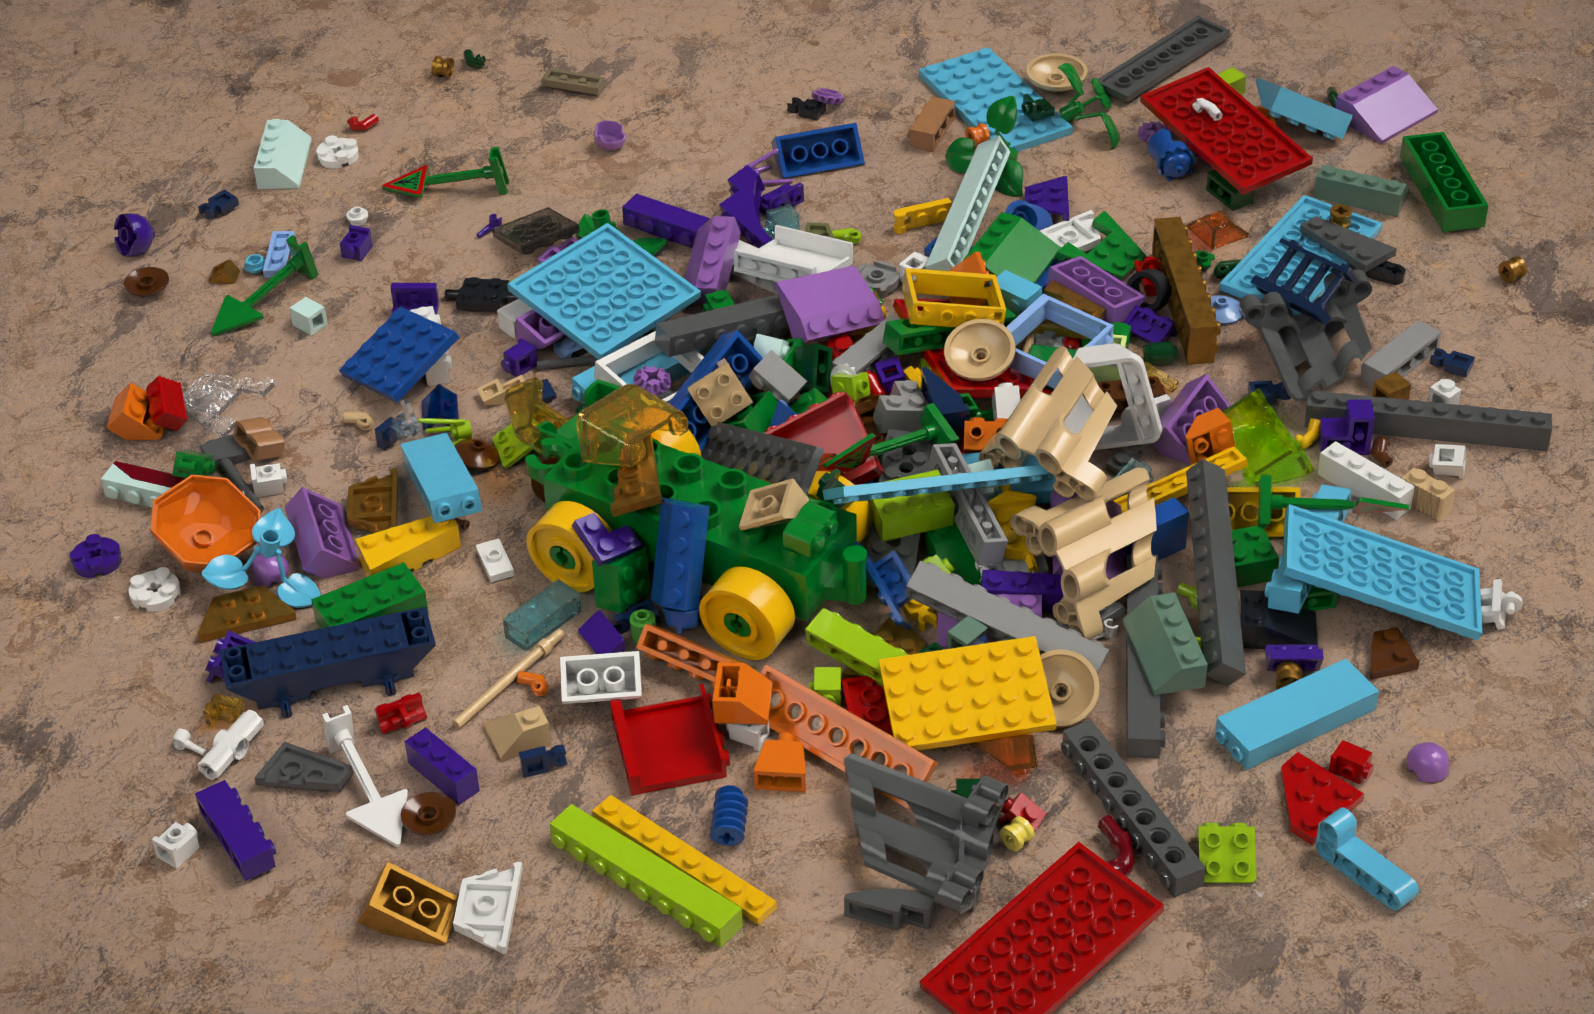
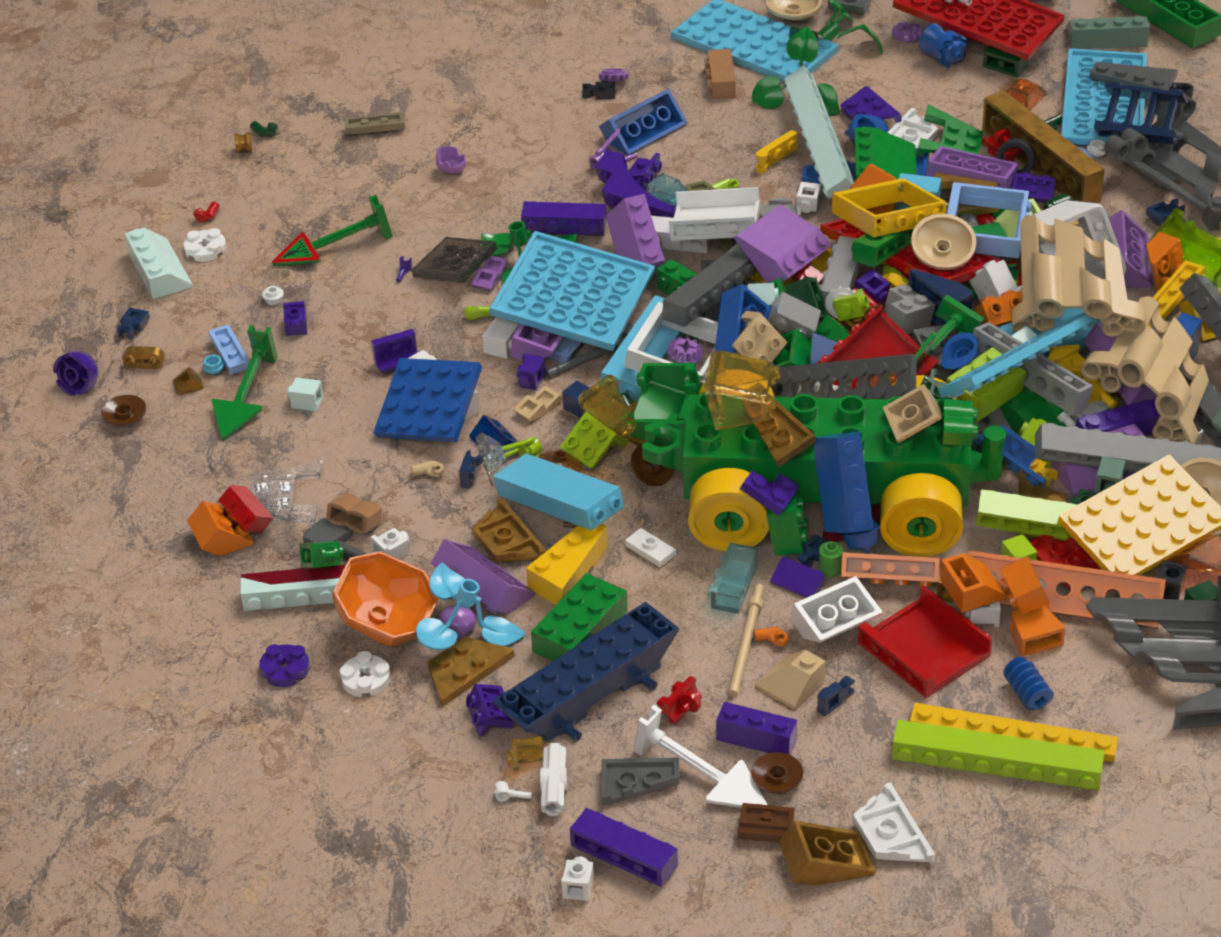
camera: 25 degrees left, 0 degrees up
(202, 239) = (143, 357): none -> pearl gold beam
(377, 850) = (764, 822): none -> reddish brown plate
(481, 294) = (448, 328): black plate -> none
(789, 717) = (1024, 585): none -> orange brick
(905, 463) = (959, 351): none -> blue piece
(955, 764) = (1175, 579): none -> black brick
(978, 134) = (767, 69): orange wheel -> none
(1341, 215) = (1116, 55): pearl gold wheel -> none

